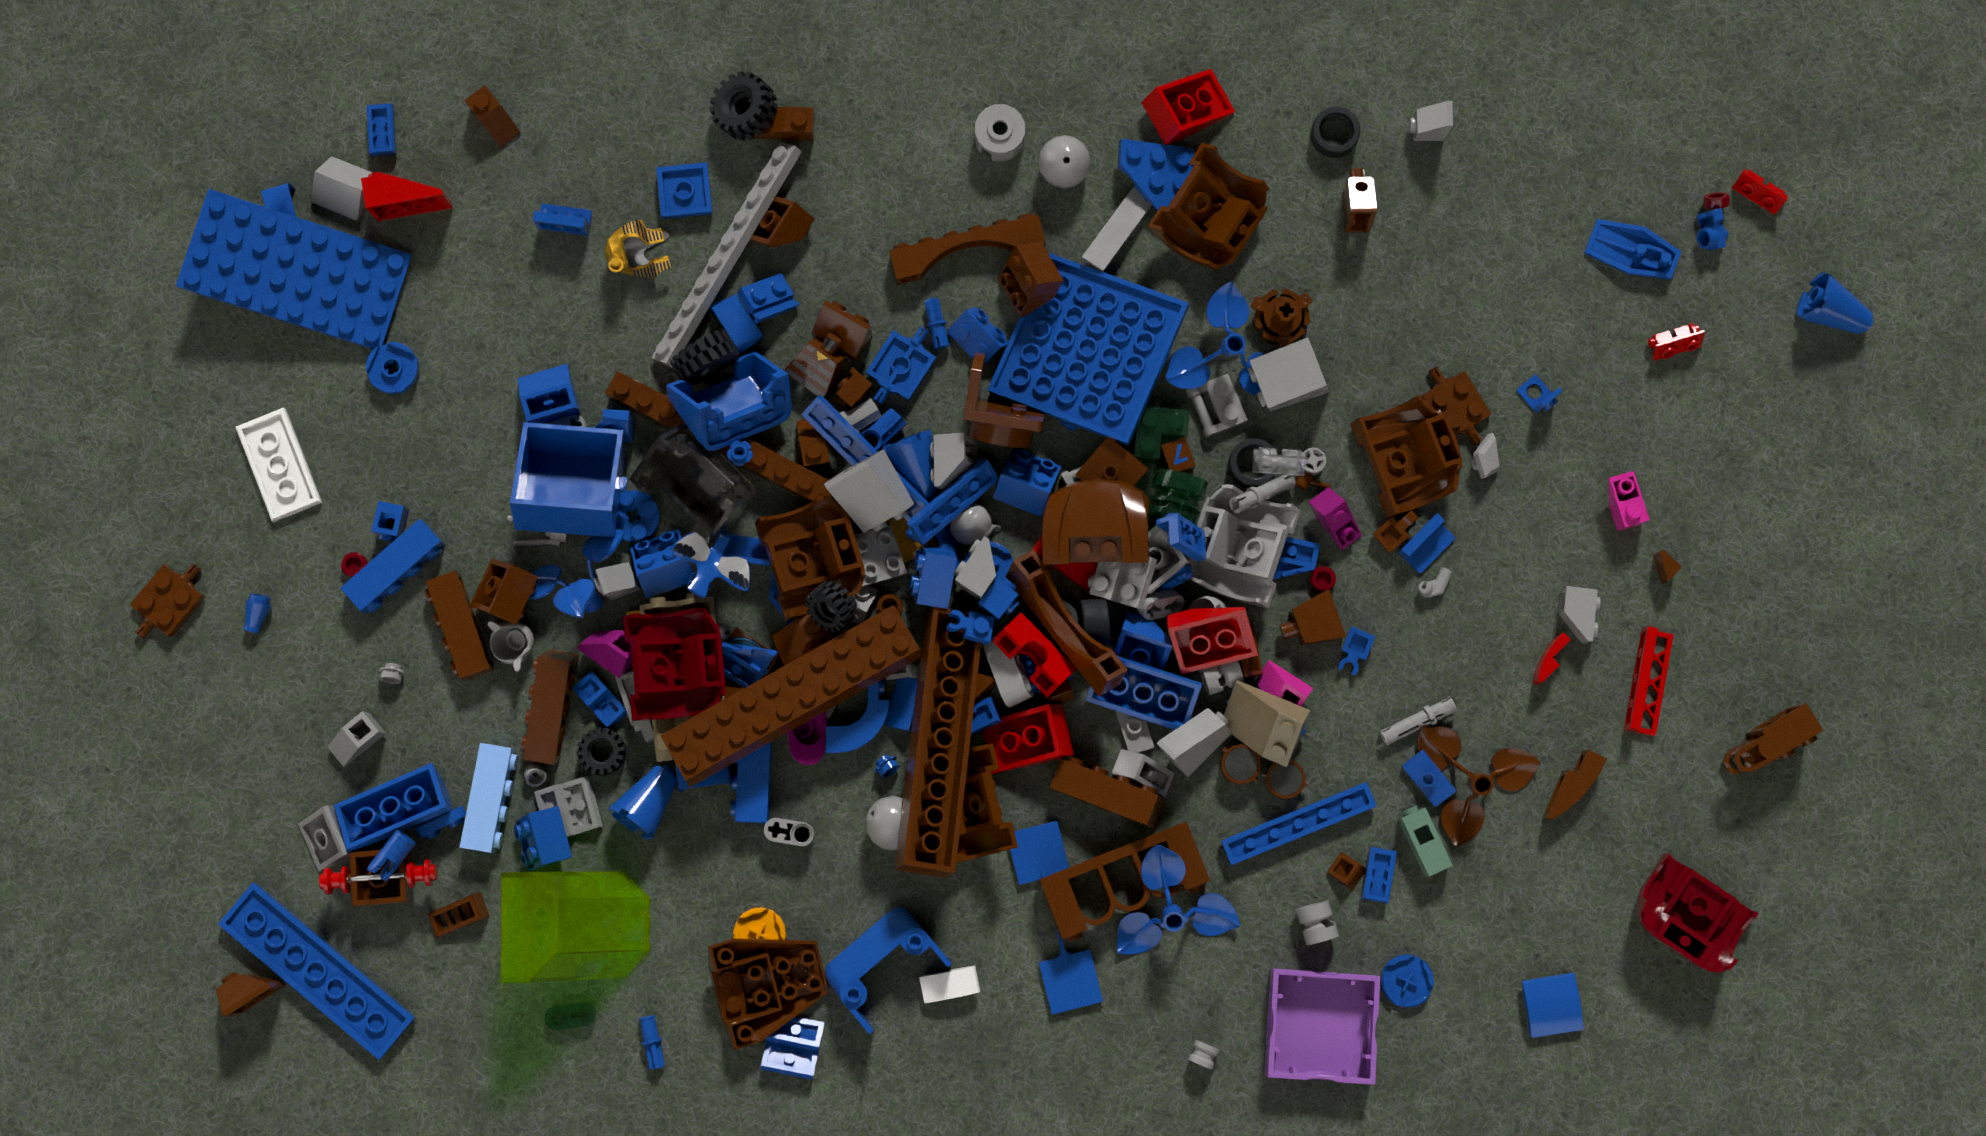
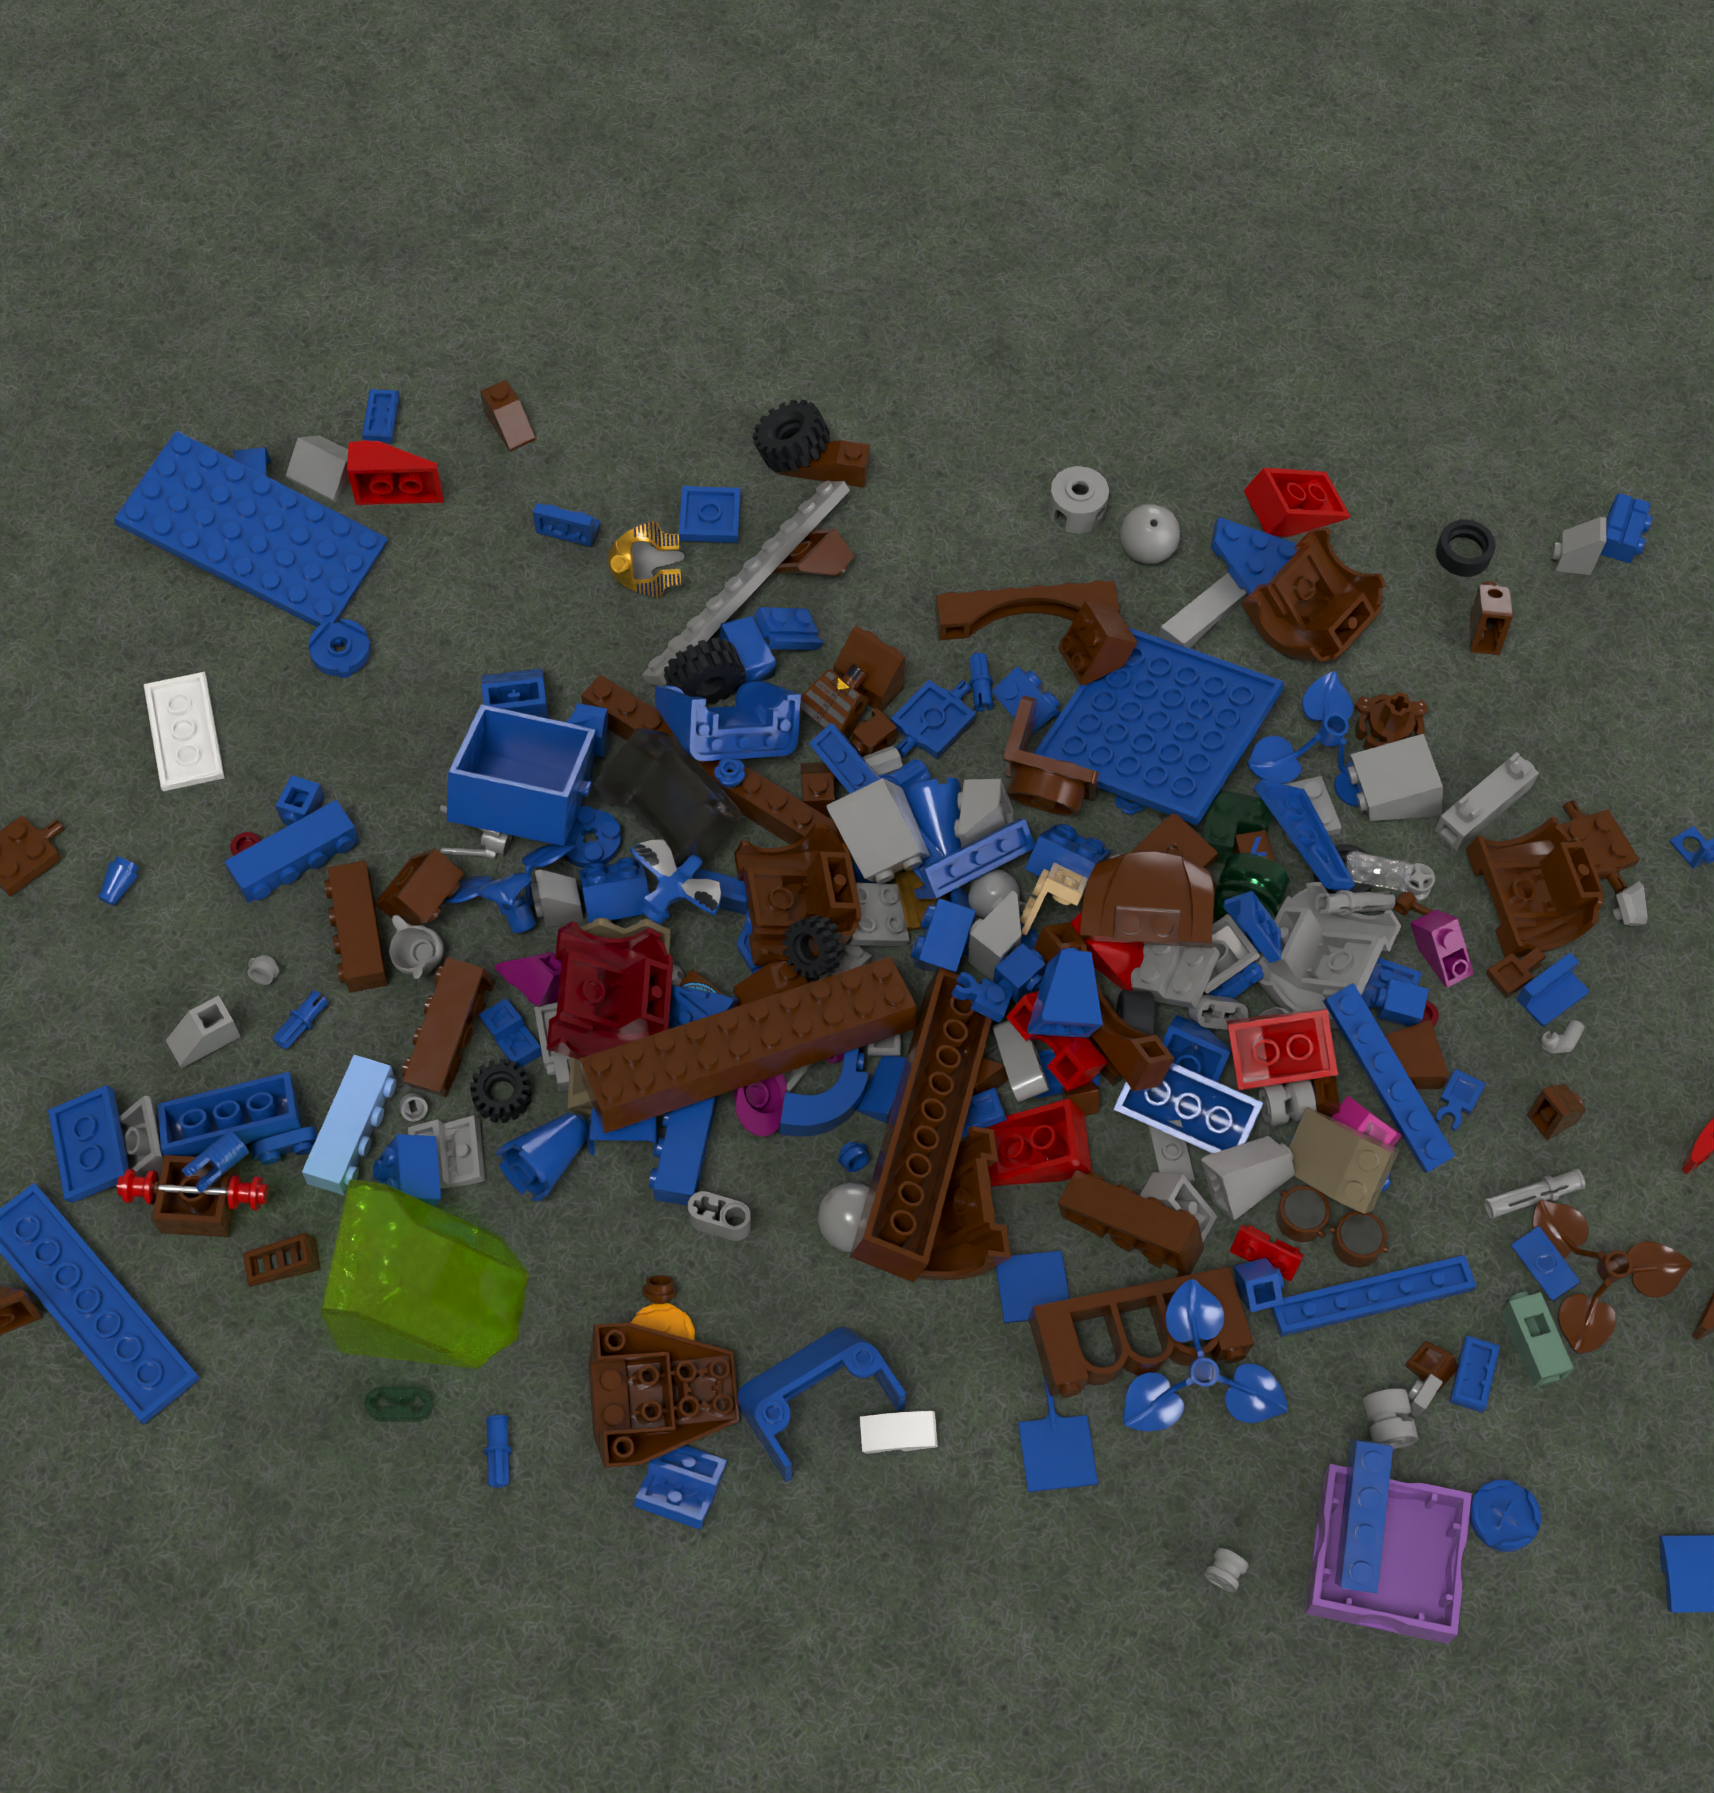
camera: 10 degrees right, 20 degrees down
(287, 844) = (88, 1143): none -> blue plate
(430, 713) = (299, 1020): none -> blue axle
(752, 897) = (659, 1289): none -> reddish brown plate
(1023, 519) = (1062, 883): none -> tan bracket
(1037, 625) = (1067, 997): none -> blue slope
(1211, 830) = (1259, 1284): none -> blue brick
(1215, 432) = (1305, 829): none -> blue wing
(1225, 804) = (1255, 1245): none -> red hinge
(1298, 646) = (1388, 1078): none -> blue plate
(1301, 1006) = (1363, 1515): none -> blue brick
(1304, 577) = (1401, 1002): none -> blue brick
(1340, 898) = (1422, 1393): none -> light grey plate
(1365, 378) = (1486, 801): none -> light grey brick
(1433, 650) = (1556, 1110): none -> reddish brown slope
(1470, 93) = (1625, 526): none -> blue brick

